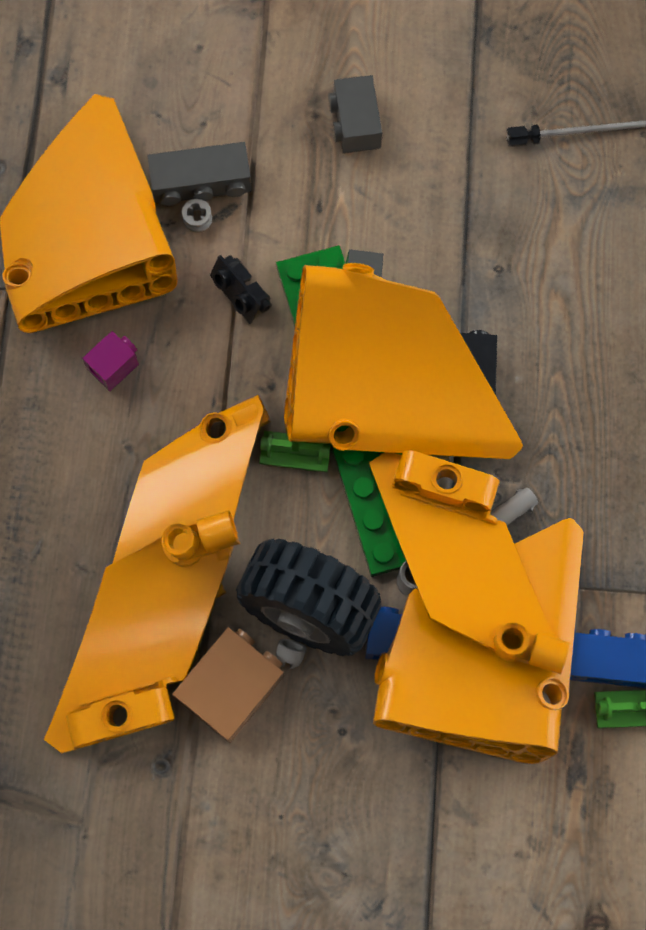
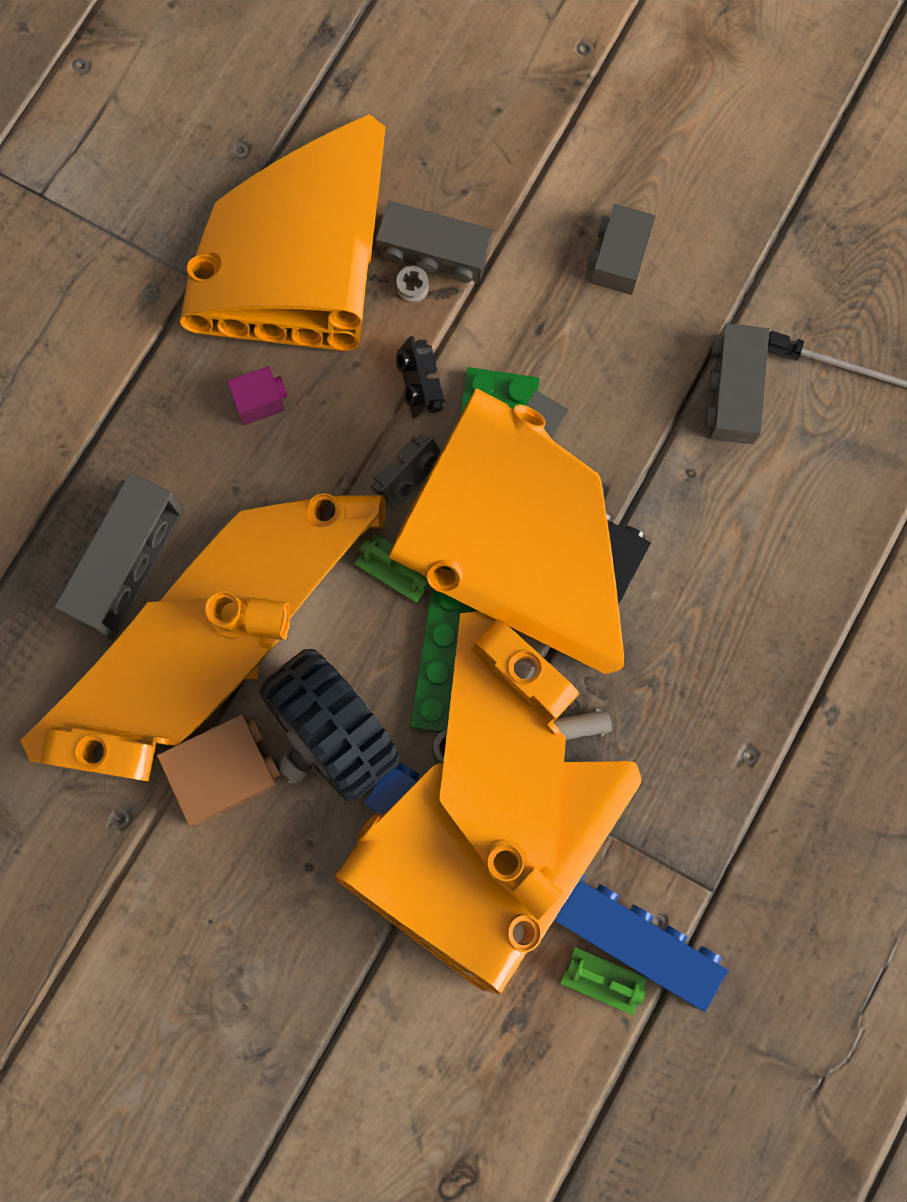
camera: 25 degrees right, 5 degrees up
(59, 543) = (119, 556): none -> dark grey brick
(272, 353) = (399, 482): none -> dark grey hinge
(502, 180) = (737, 383): none -> dark grey brick

